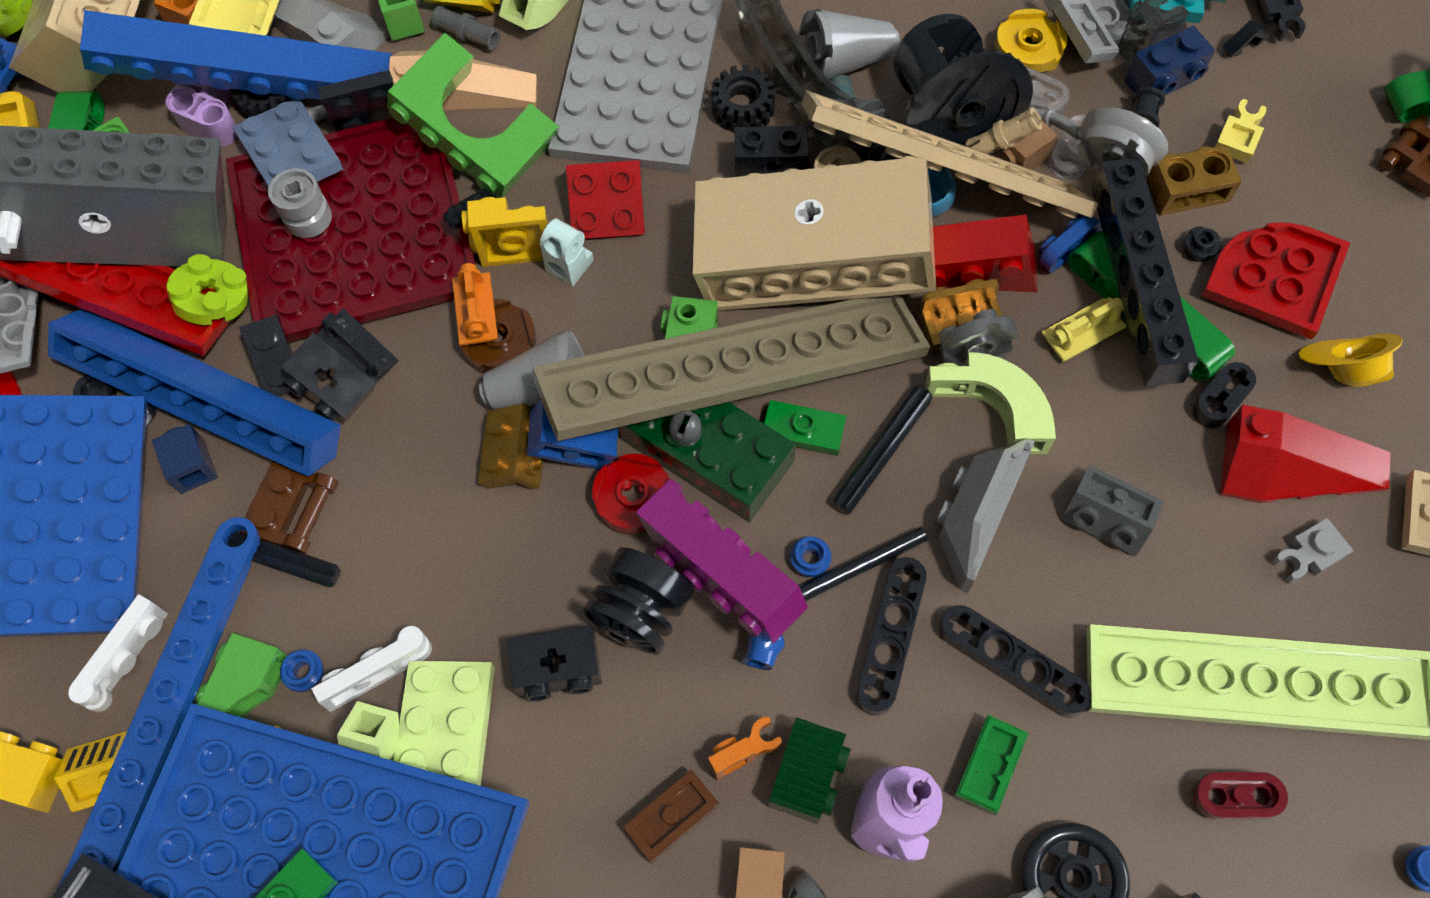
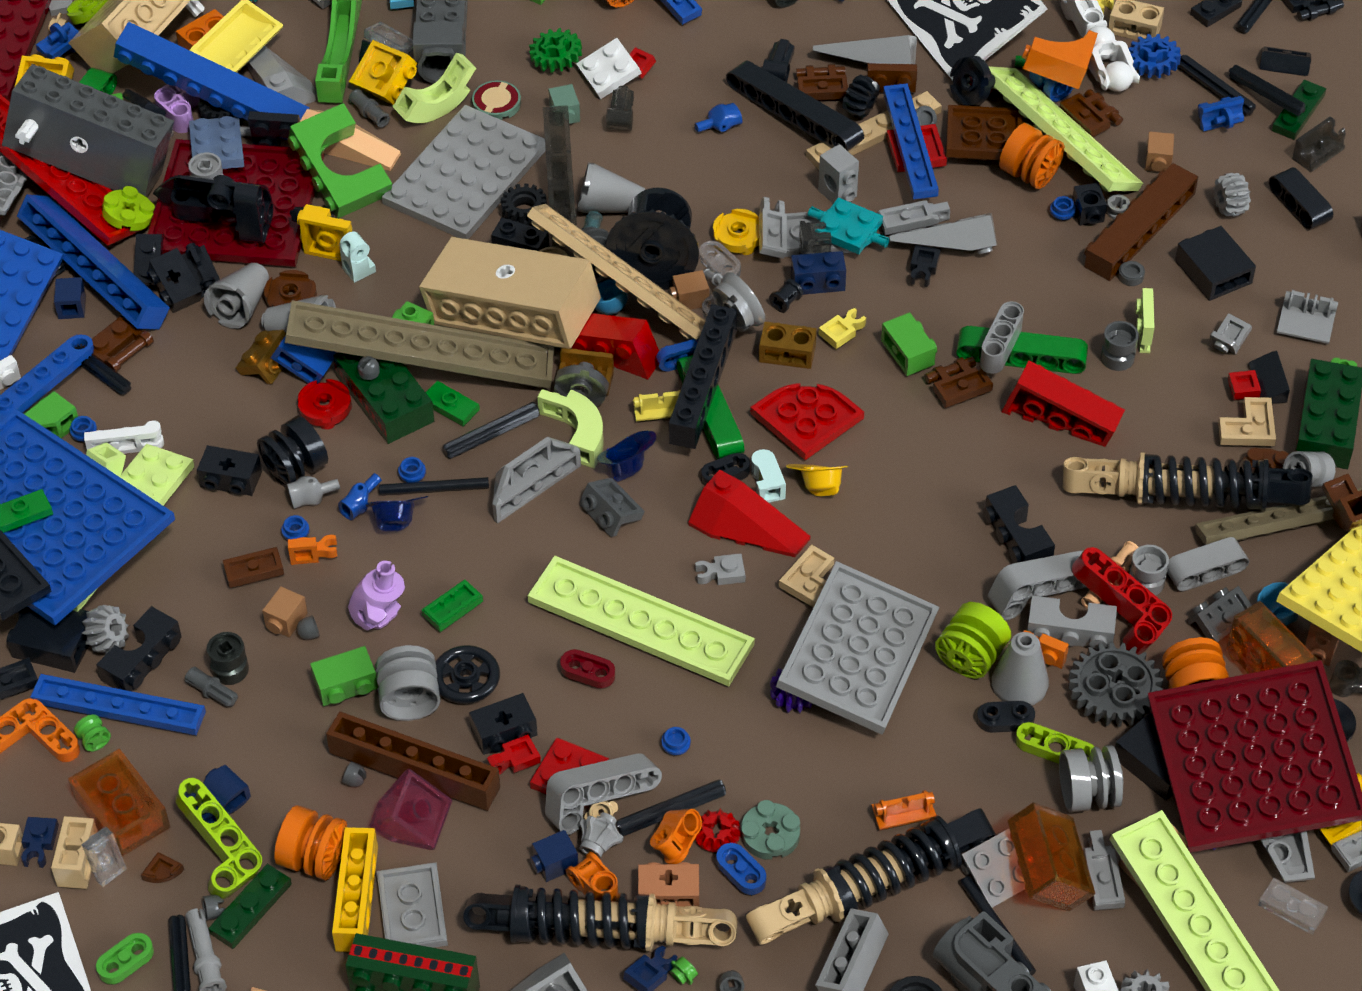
camera: 20 degrees right, 15 degrees down
(157, 122) = (142, 102): none -> black plate
(347, 232) = (208, 199): none -> black panel
(428, 369) = (236, 295): none -> light grey cone
(474, 306) = (283, 268): orange hinge -> none
(606, 198) = (400, 236): red bracket -> none
(689, 650) = (309, 491): none -> light grey piece
(692, 709) = (295, 523): none -> blue plate
(721, 564) = (348, 443): magenta wedge -> none
(808, 770) = (342, 570): dark green brick -> none
(831, 635) = (393, 514): none -> clear blue piece
(895, 636) = (433, 524): black beam -> none
(1006, 133) = (672, 274): tan pin -> none
(1017, 655) = (498, 563): black beam -> none
(1096, 418) = (628, 455): none -> clear blue piece
(1196, 249) = (770, 383): black plate -> none
(1249, 33) = (886, 273): black tile -> none
(1288, 382) = (770, 481): none -> light aqua leg
(1345, 122) = (908, 344): none -> bright green brick

